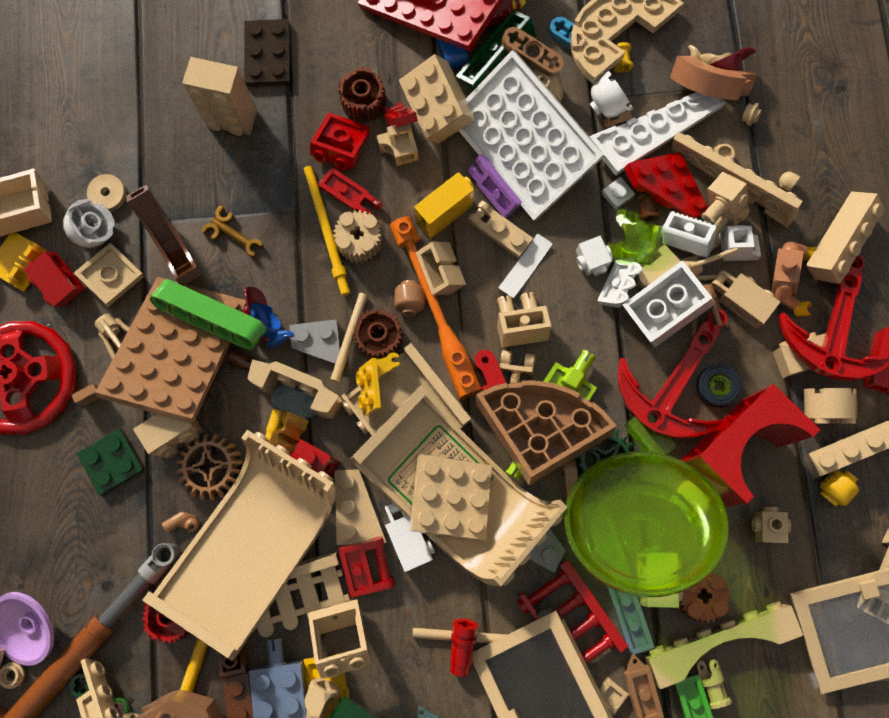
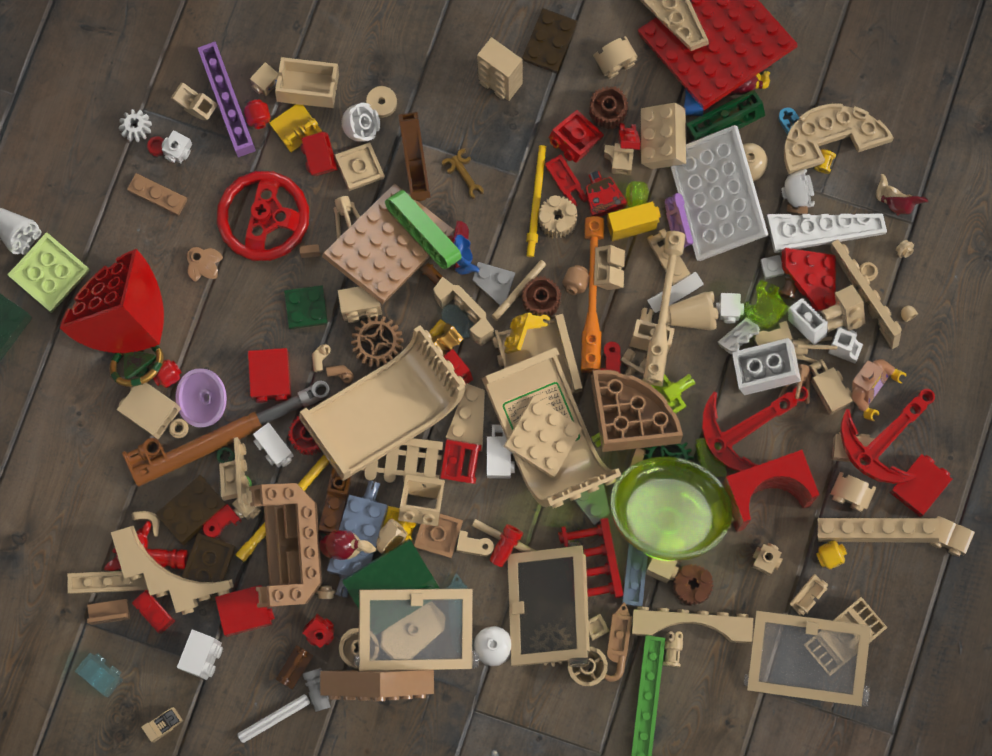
camera: 25 degrees right, 0 degrees up
(96, 562) = (269, 374): none -> red brick
(134, 647) = (274, 446): none -> white brick
(148, 513) = (319, 355): none -> tan arm
(346, 37) = (616, 56): none -> tan brick
(386, 670) = (440, 538): none -> medium nougat plate
(398, 192) = (603, 196): none -> red torso
(425, 664) = (482, 547): none -> tan leg
(434, 174) = (636, 193): none -> clear neon green animal
(538, 333) = (658, 345): none -> tan bar
(542, 49) = (760, 131): medium nougat beam -> none
(558, 278) = (694, 312): none -> tan cone
(710, 80) = (882, 211): nougat arch -> none
(718, 373) = (784, 435): black bush -> none
(833, 557) = (804, 599): none -> tan hinge
(845, 237) = (927, 374): tan brick -> none

